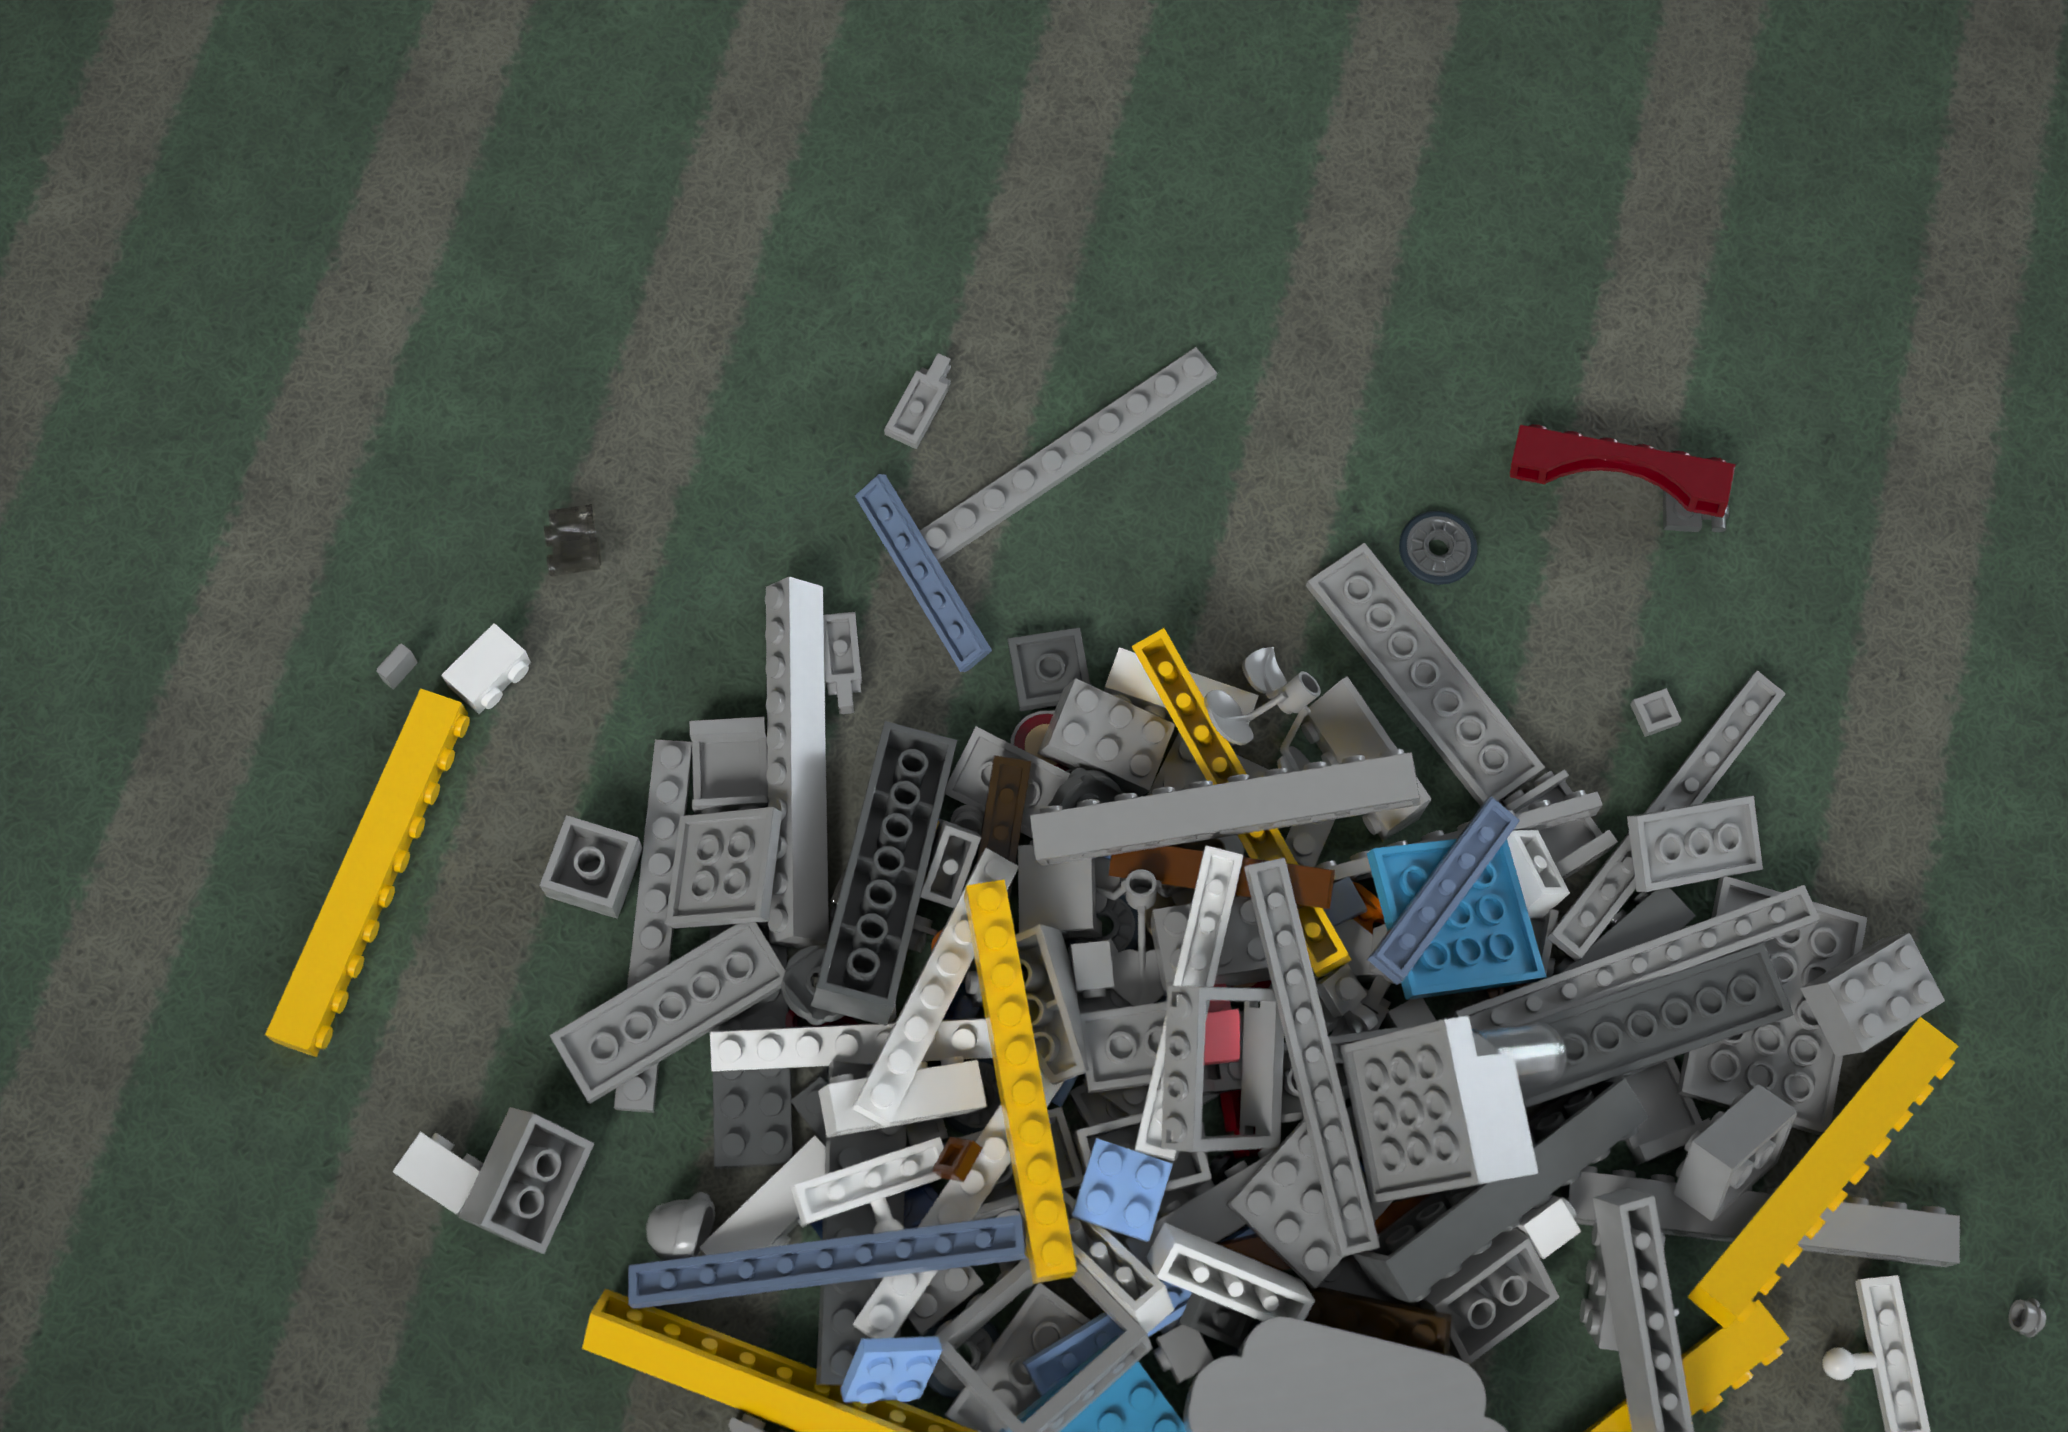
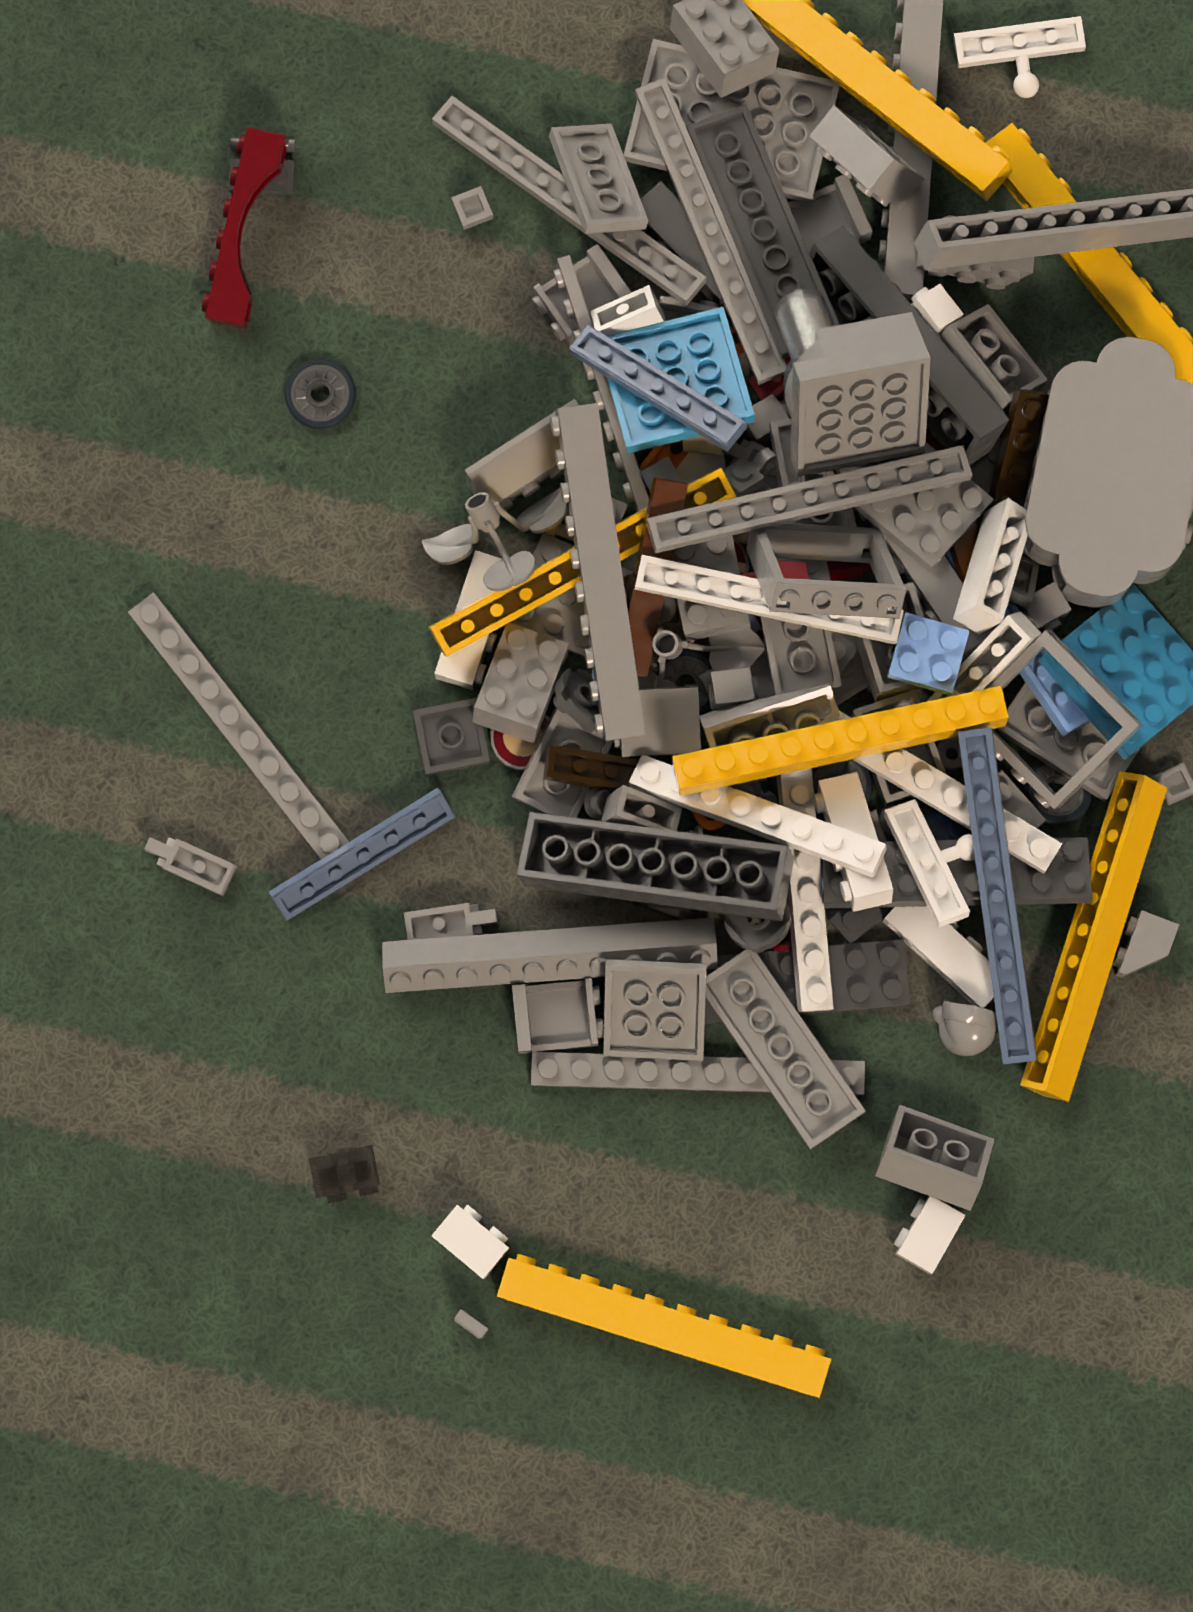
camera: 85 degrees left, 10 degrees up
(591, 867) = (655, 1128): light grey brick -> none
(891, 1369) = (1079, 840): light blue plate -> none
(957, 1159) = (905, 792): reddish brown tile -> none
(1424, 676) = (445, 407): light grey plate -> none

